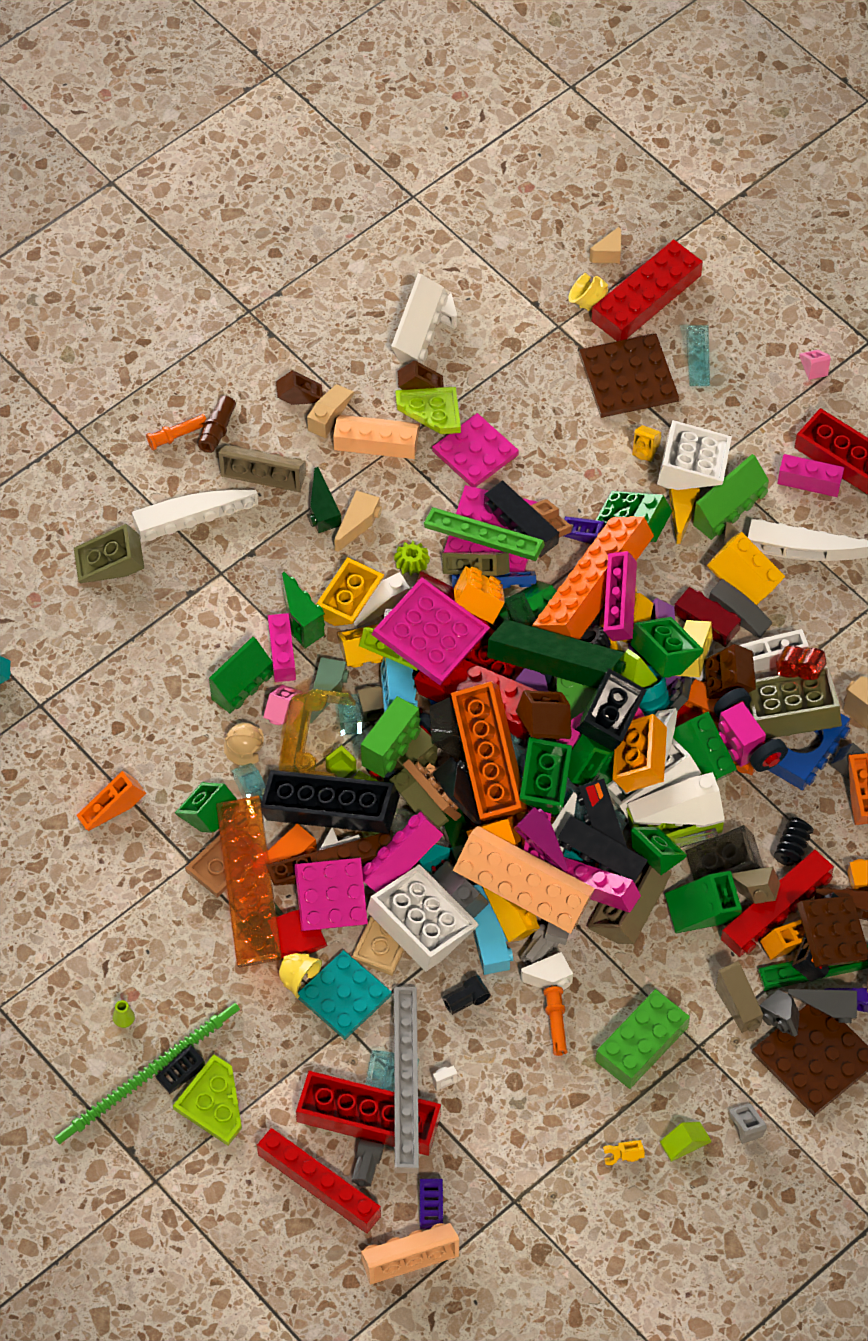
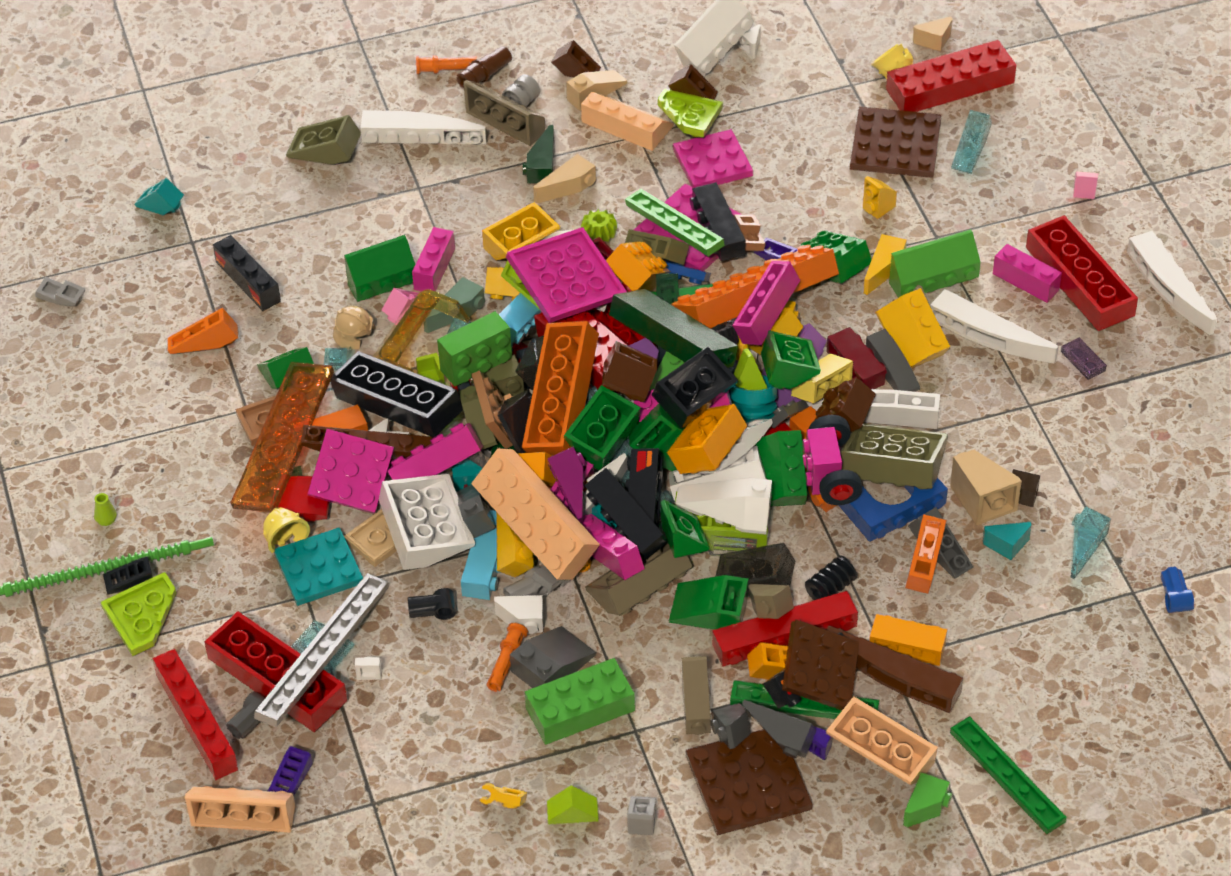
camera: 25 degrees right, 10 degrees down
(115, 722) = (246, 273): none -> black brick
(267, 437) = (523, 90): none -> light grey wheel
(304, 616) = (466, 236): green slope -> none
(595, 1008) = (549, 657): none -> dark grey slope
(693, 457) = (911, 217): white slope -> none
(801, 662) = (920, 419): clear red brick -> none

